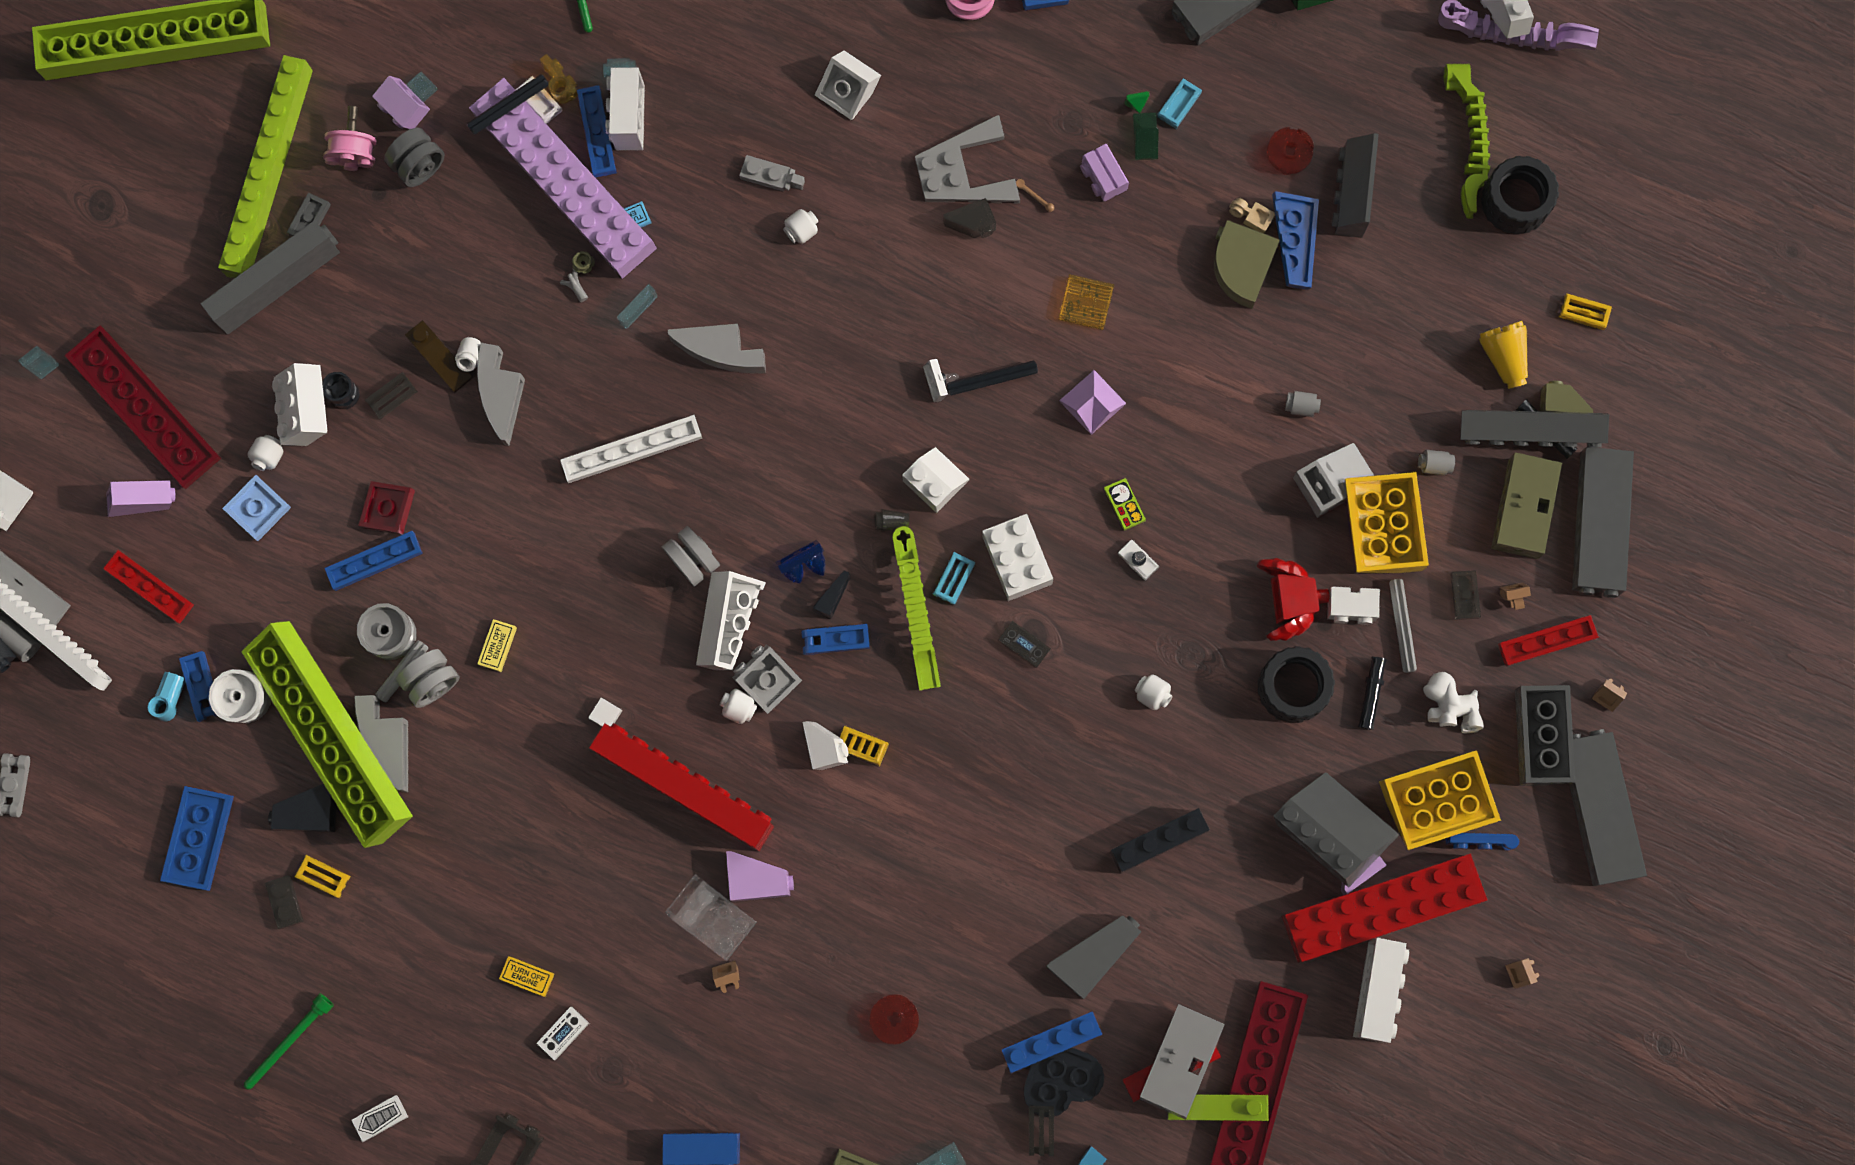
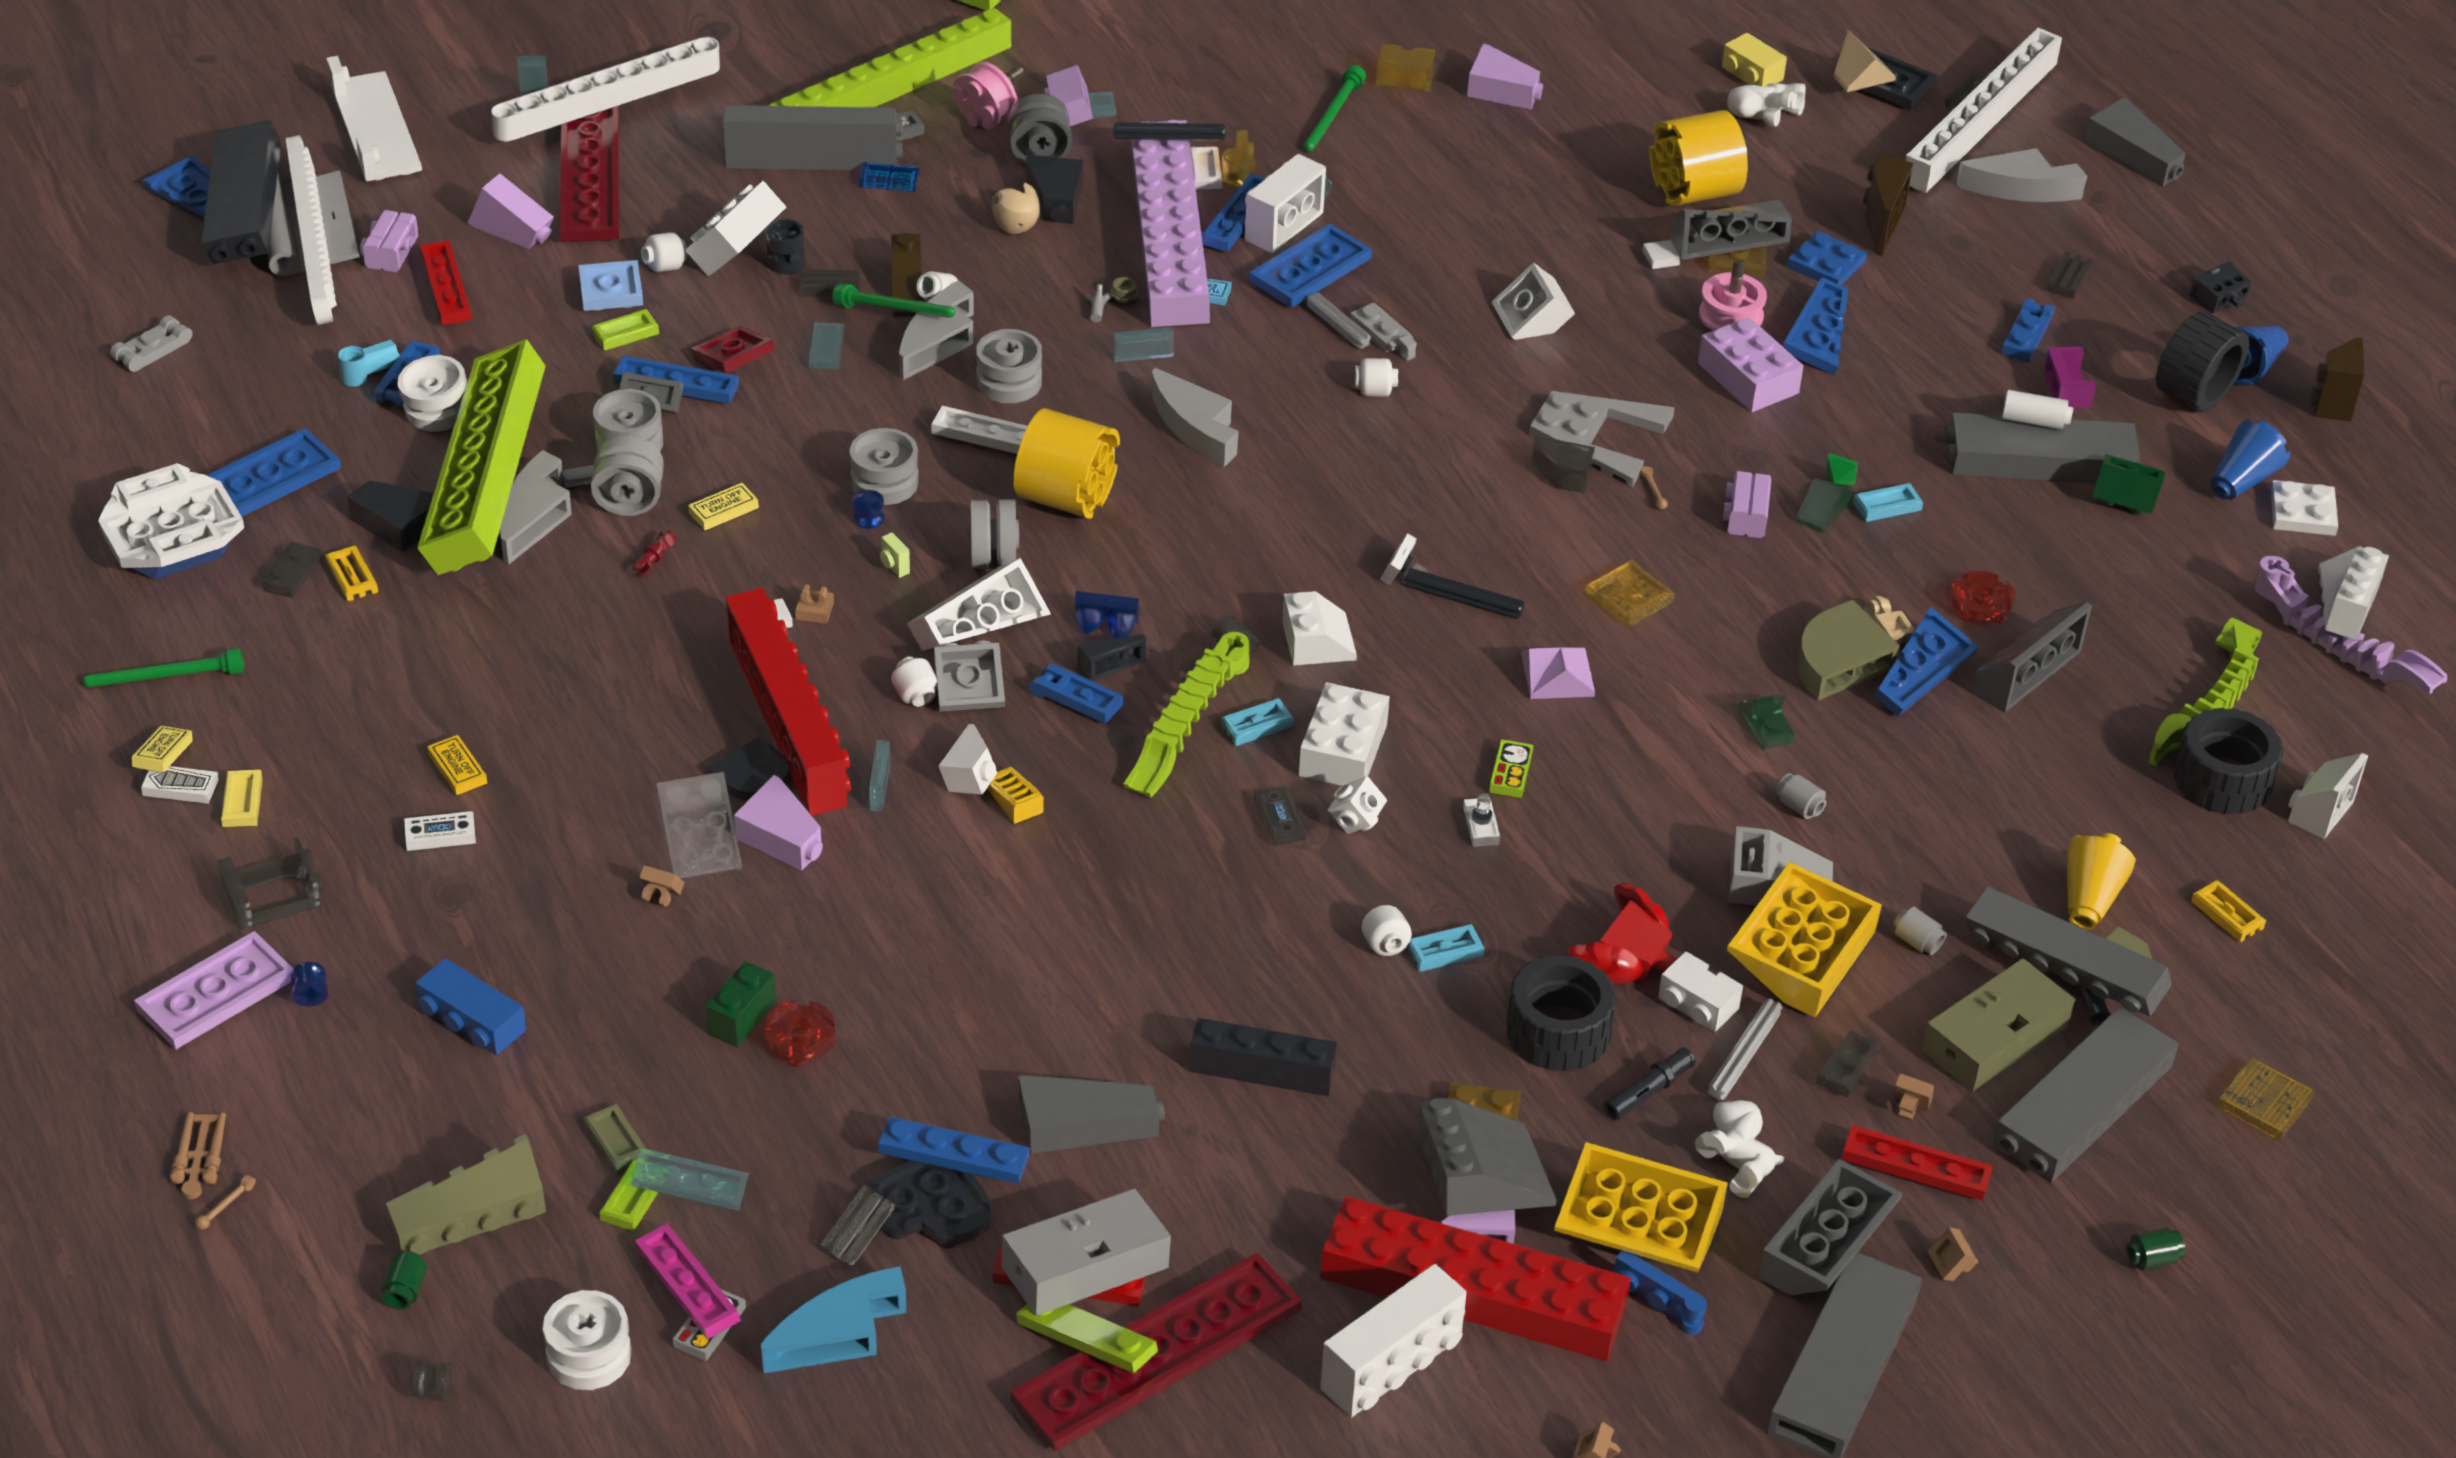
camera: 30 degrees right, 35 degrees down
(78, 578) = (389, 241): none -> lavender brick
(96, 344) = (605, 89): none -> white beam
(160, 929) = (169, 521): none -> white piece
(299, 537) = (625, 329): none -> lime tile
(343, 264) = (889, 177): none -> clear blue tile
(347, 1105) = (161, 749): none -> light yellow tile
(369, 586) = (665, 391): none -> dark grey plate
(415, 402) = (847, 296): none -> green piece
(425, 1099) = (241, 798): none -> light yellow tile
(437, 454) = (826, 345): none -> clear light blue tile
(460, 244) = (1016, 210): none -> tan helmet
(462, 197) = (1056, 184): none -> black slope
(490, 718) = (654, 552): none -> dark red piece
(560, 394) = (1009, 366): none -> light grey wheel
(582, 553) = (885, 463): none -> light grey wheel
(586, 578) = (868, 509): none -> clear blue wheel
(623, 685) = (814, 605): none -> medium nougat tile
(638, 611) = (895, 555): none -> yellowish green plate
(680, 149) = (1310, 265): none -> blue plate
(689, 465) = (1066, 462): none -> yellow brick
(700, 845) = (751, 767): none -> black tile
(736, 187) = (1338, 320): none -> light grey axle
(779, 796) = (879, 775): none -> clear light blue tile
(849, 1029) = (741, 1004): none -> dark green brick
(1018, 41) = (1750, 364): none -> lavender brick
(1068, 609) = (1357, 805): none -> white brick
(1179, 691) = (1447, 951): none -> medium azure tile
(1237, 351) = (1767, 720): none -> clear green slope
(1294, 776) = (1491, 1099): none -> pearl gold plate
(1589, 180) = (2327, 794): none -> white slope
(1692, 446) = (2266, 1098): none -> clear yellow tile
(1707, 608) = (2155, 1248): none -> dark green brick

